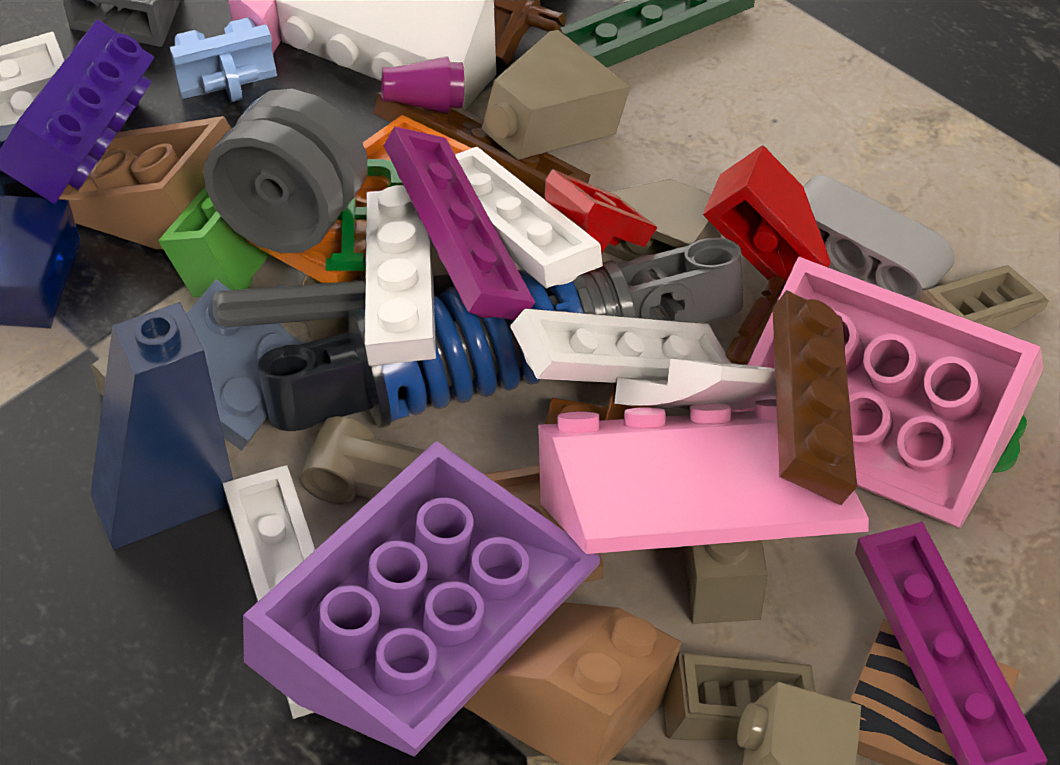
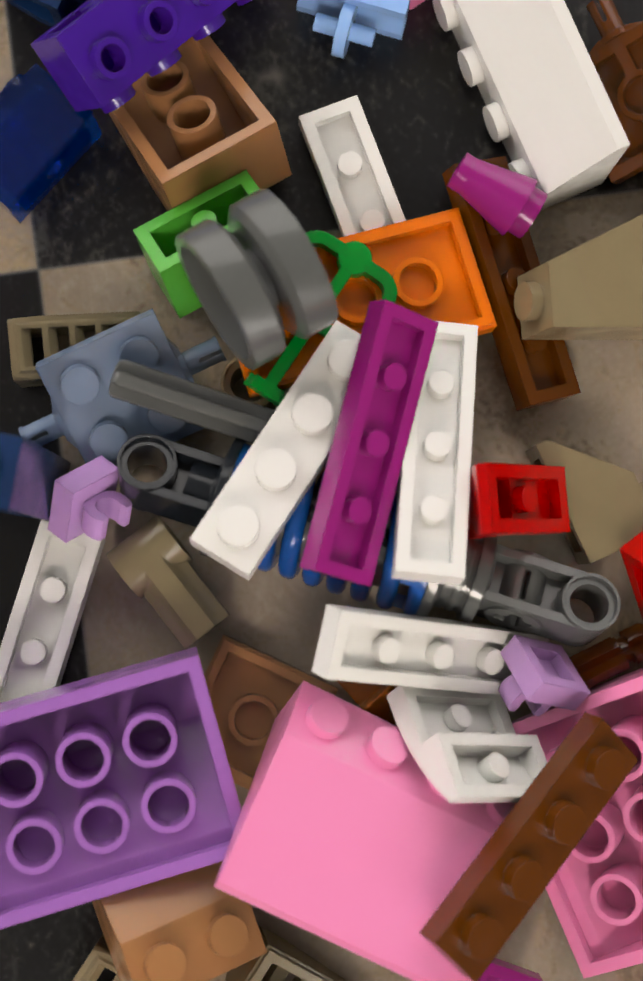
camera: 30 degrees right, 35 degrees up
(255, 439) = (87, 500): none -> lavender tile
(723, 330) = (540, 676): none -> lavender tile

